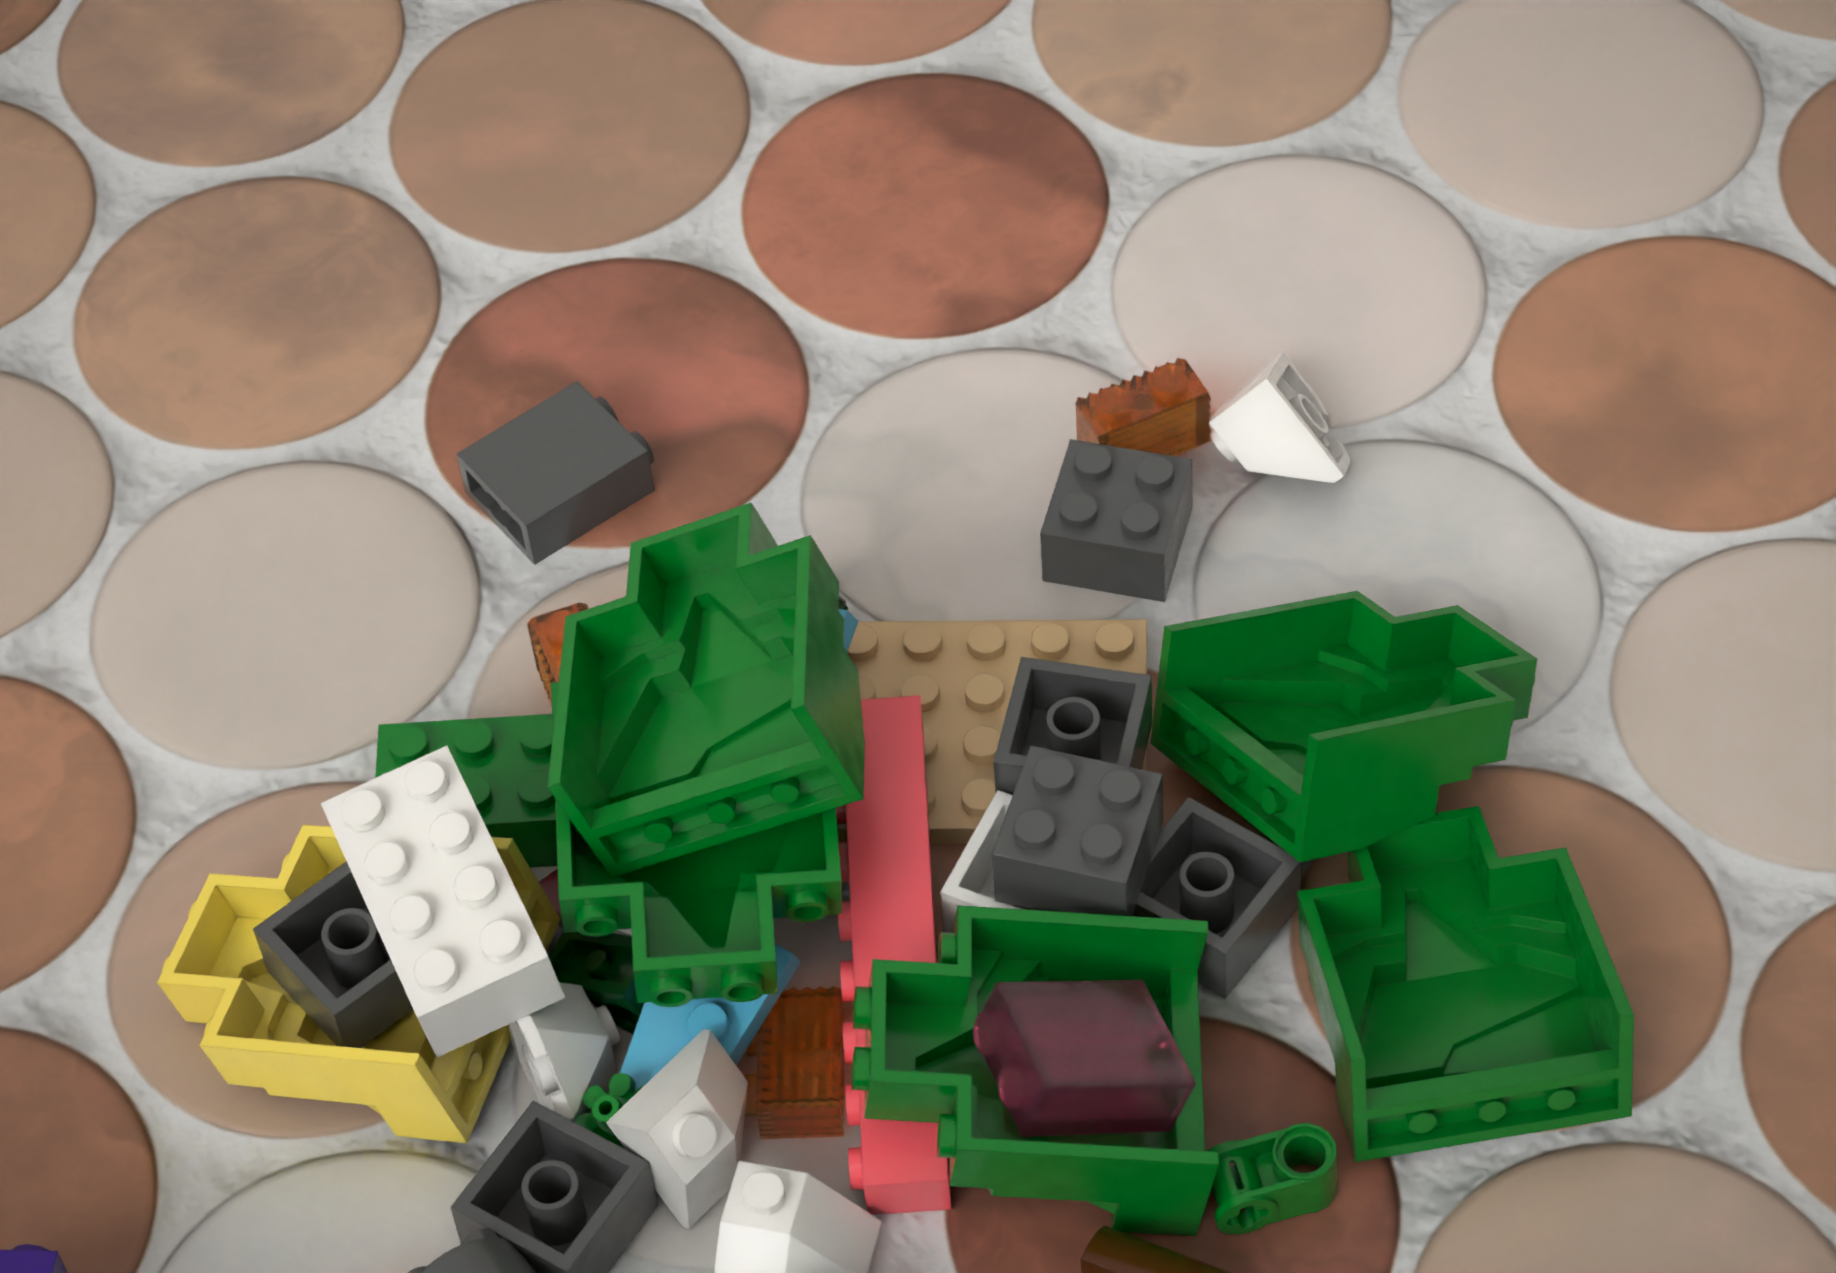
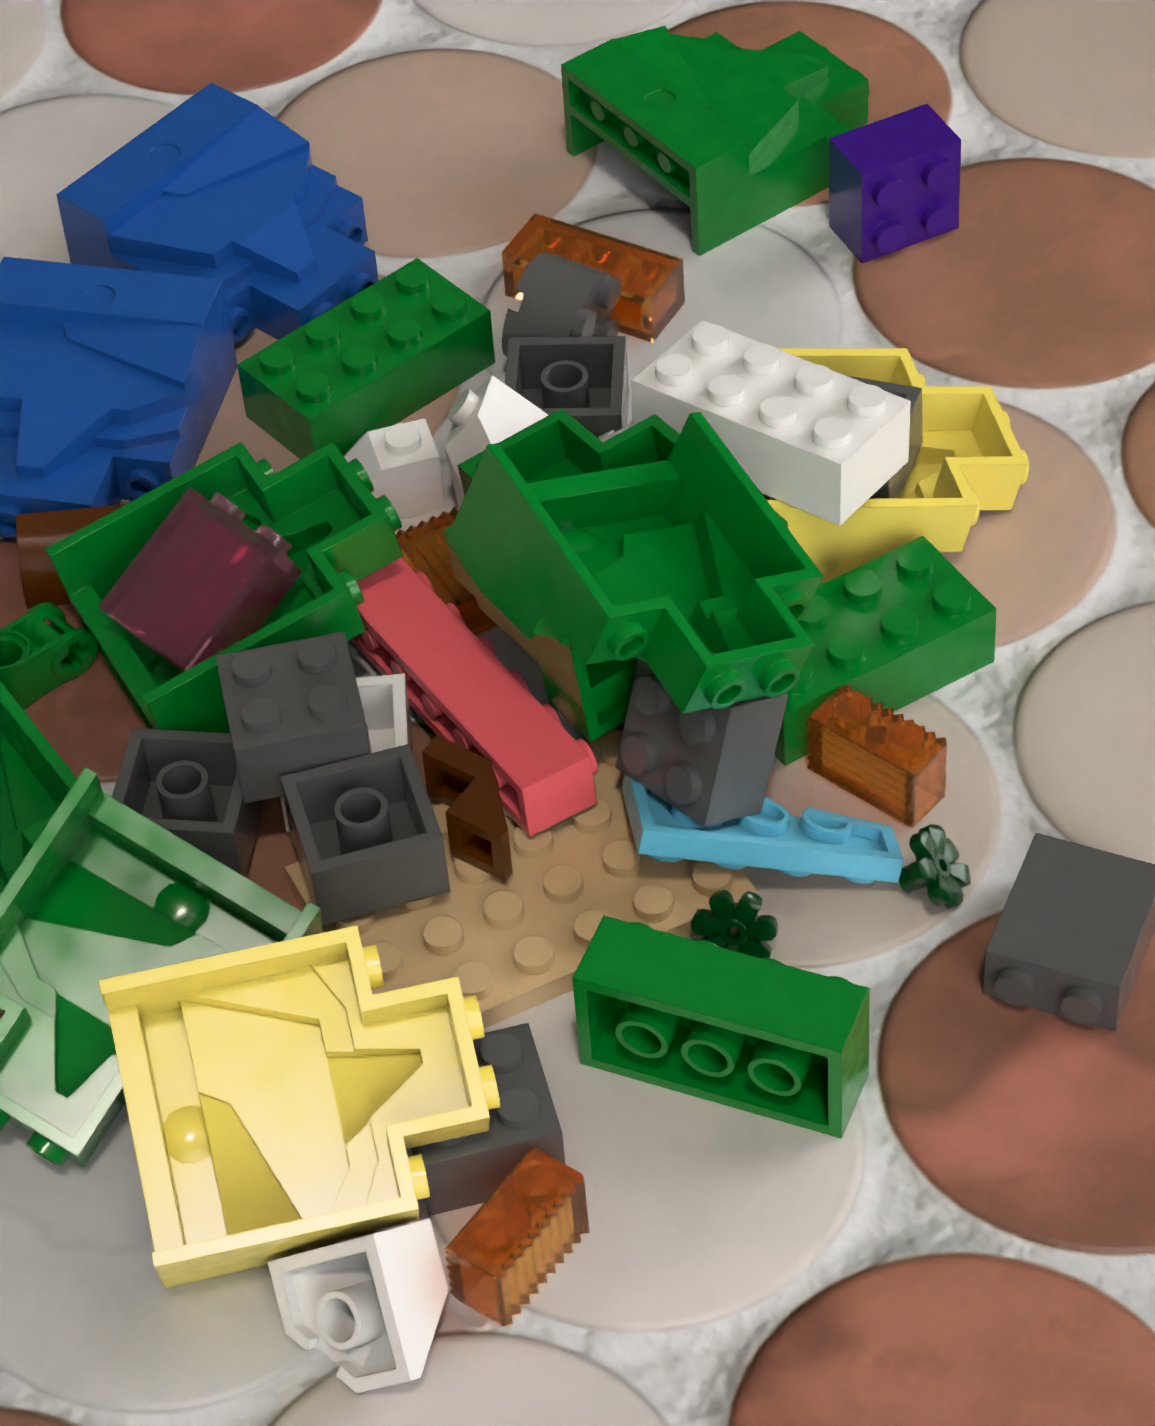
camera: 150 degrees right, 5 degrees down
(612, 572) = (935, 868): none -> dark green plant
(890, 481) = (722, 1025): none -> green brick
(961, 739) = (475, 813): none -> reddish brown slope
(1285, 494) = (285, 1097): none -> light yellow panel

